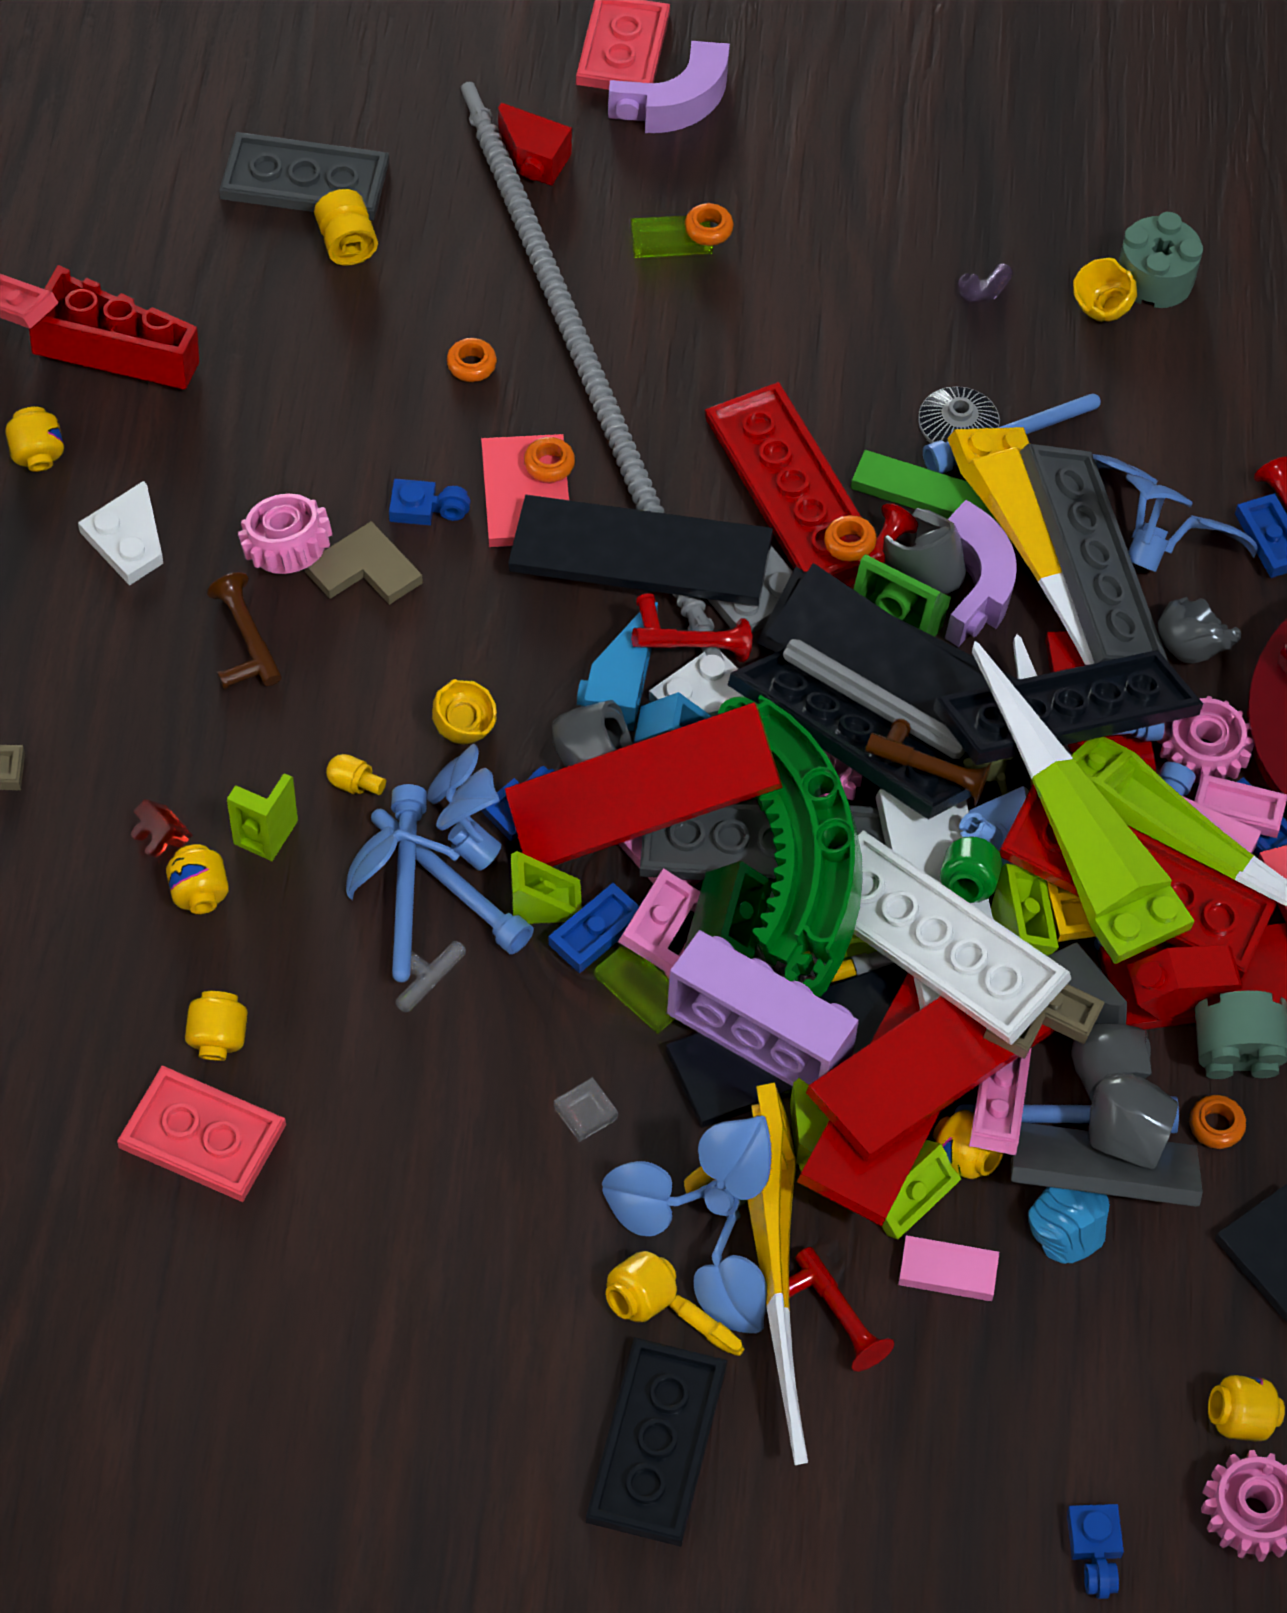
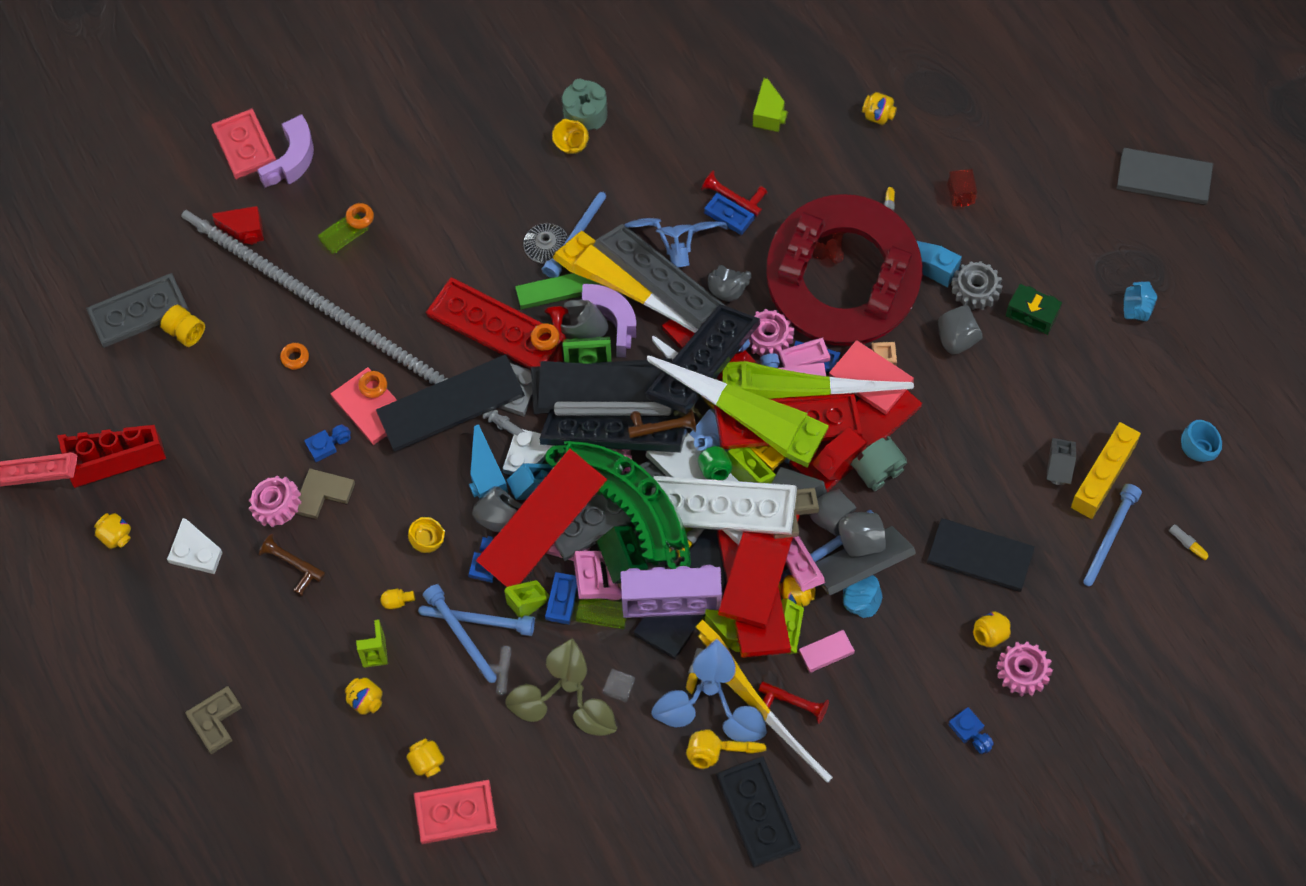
camera: 30 degrees left, 5 degrees up
(162, 825) = (325, 680): clear red tile -> none
(467, 836) = (473, 579): medium blue plant -> none
(511, 1008) = (569, 664): none -> olive plant
(735, 640) = (526, 418): red piece -> none
(977, 290) = (512, 168): clear purple arm -> none
(1217, 1138) = (893, 500): orange piece -> none

